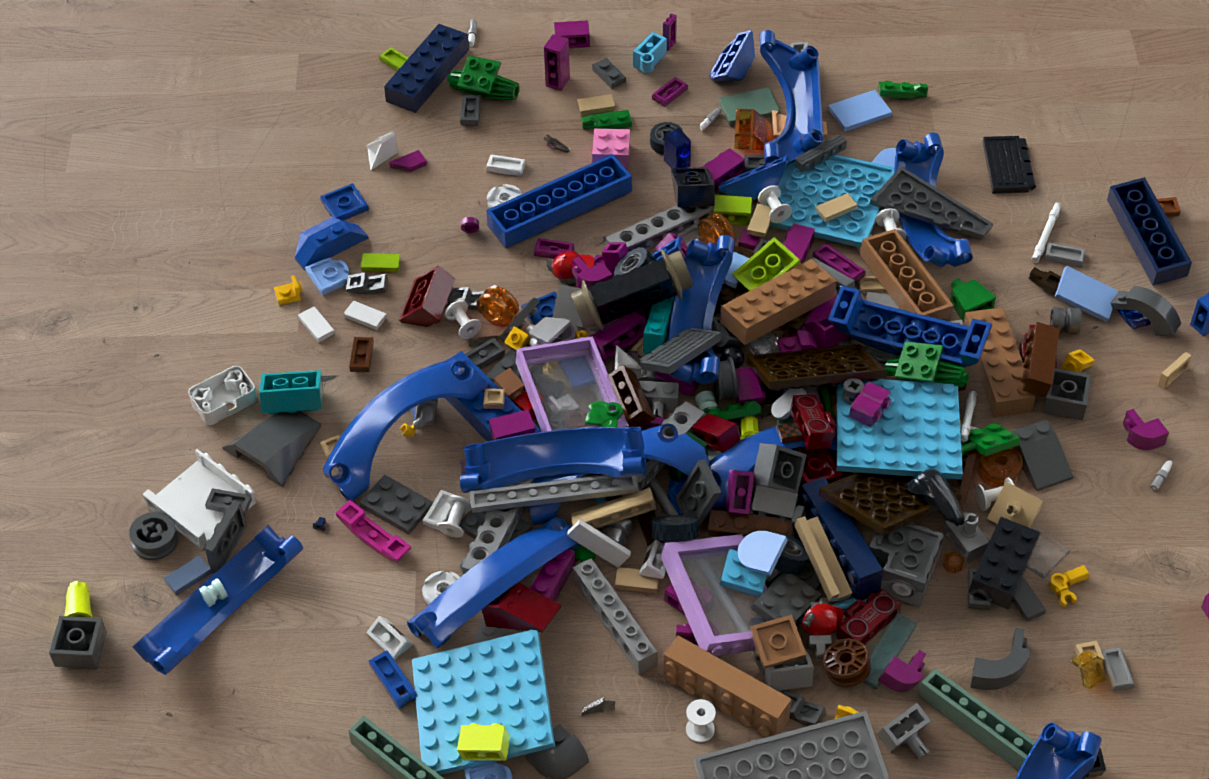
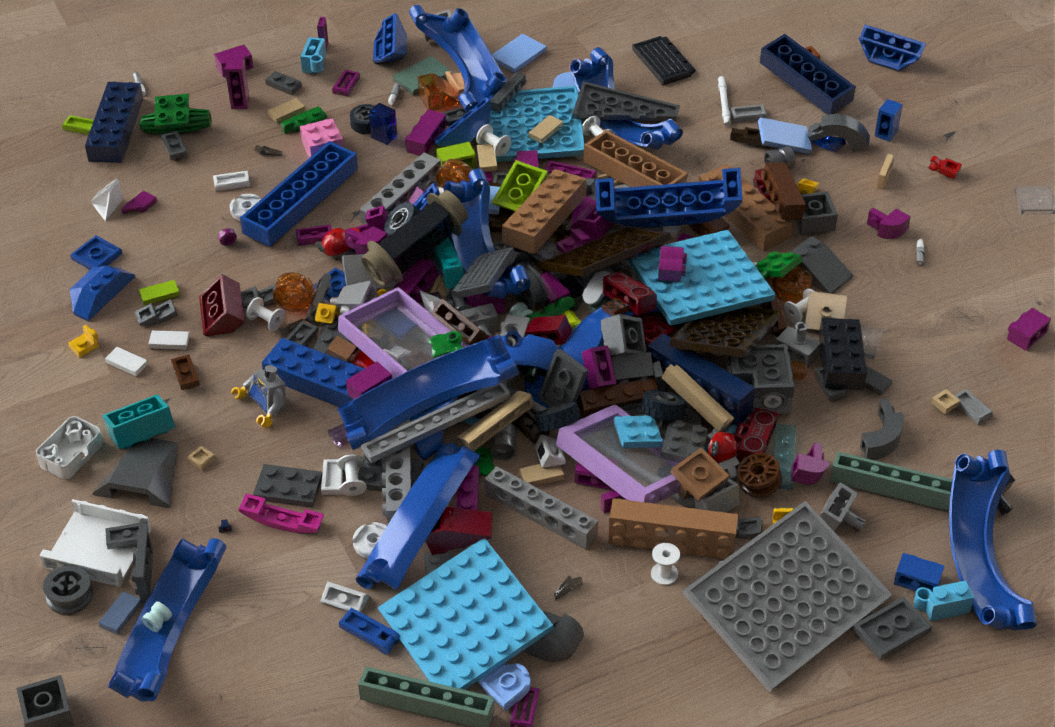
camera: 25 degrees left, 5 degrees down
(78, 600) = (23, 670): neon yellow plant -> none
(328, 274) = (114, 317): light blue tile -> none
(360, 440) = (232, 437): blue panel -> none
(483, 742) = (491, 647): neon yellow brick -> none
(494, 398) = (336, 365): tan tile -> none
(598, 543) = (496, 451): white tile -> none
(693, 187) = (417, 147): black slope -> none
(761, 551) = (646, 406): light blue tile -> none
(852, 389) = (650, 258): dark grey wheel -> none
(902, 90) = (546, 27): green hinge -> none
(923, 364) = (693, 221): green plate -> none
(937, 492) = (763, 313): black hair -> none
(965, 427) = (741, 242): white piece -> none
(970, 297) = (694, 164): green torso -> none
(1060, 582) = (892, 358): yellow bar -> none
(1091, 668) = (956, 411): clear yellow bracket -> none

